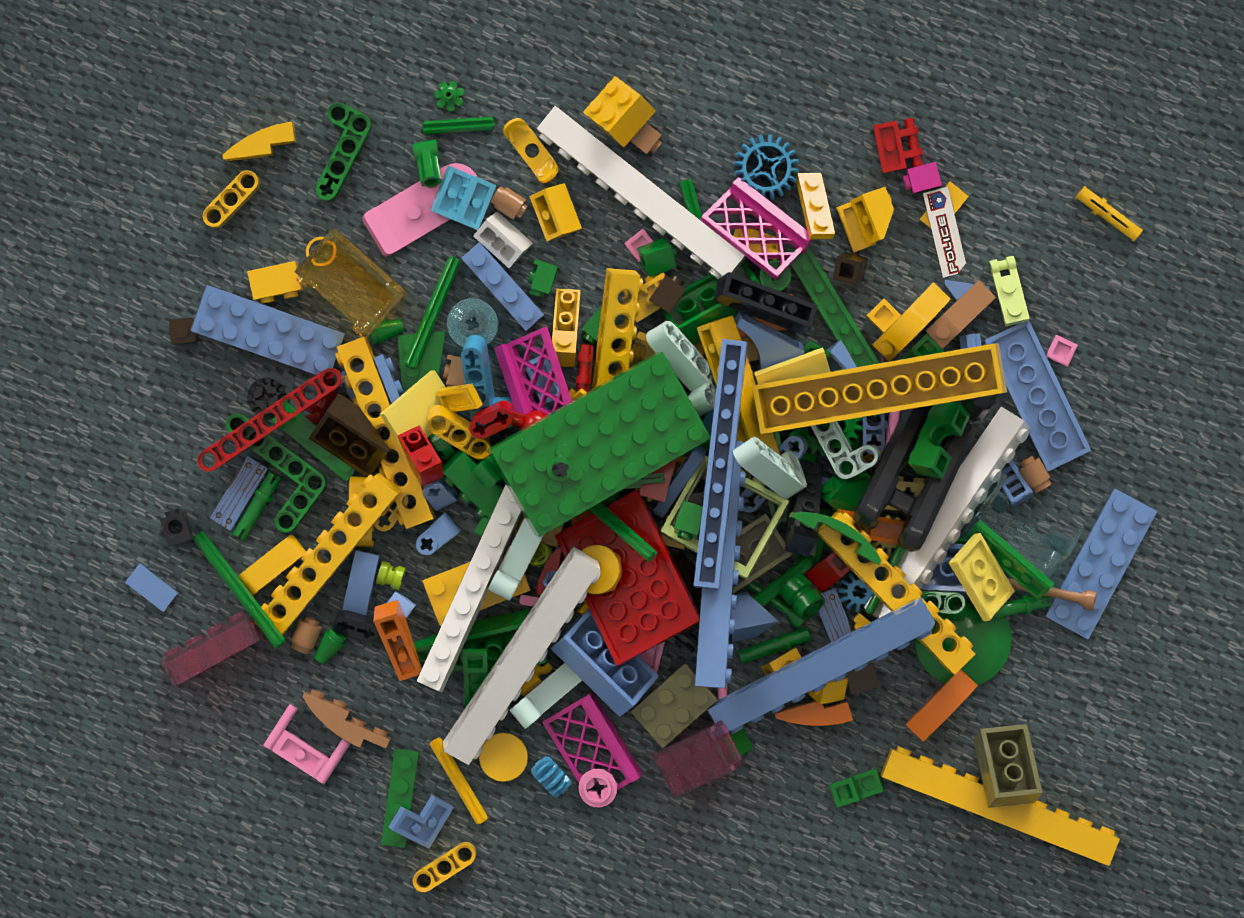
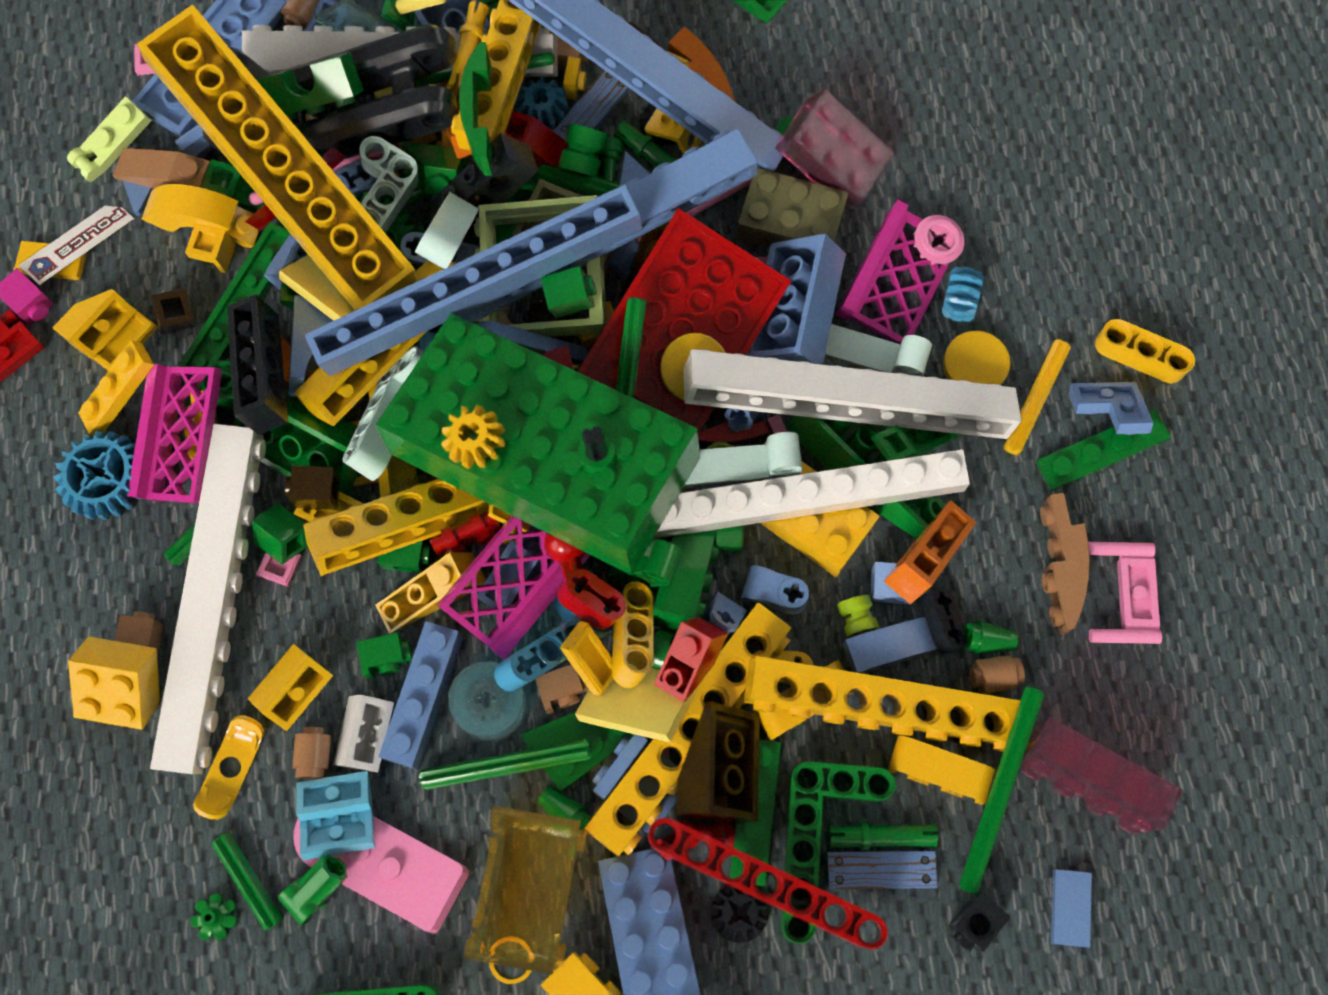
camera: 115 degrees left, 15 degrees down
(618, 406) = (477, 423): none -> yellow gear
(909, 560) = (470, 35): none -> yellow pin

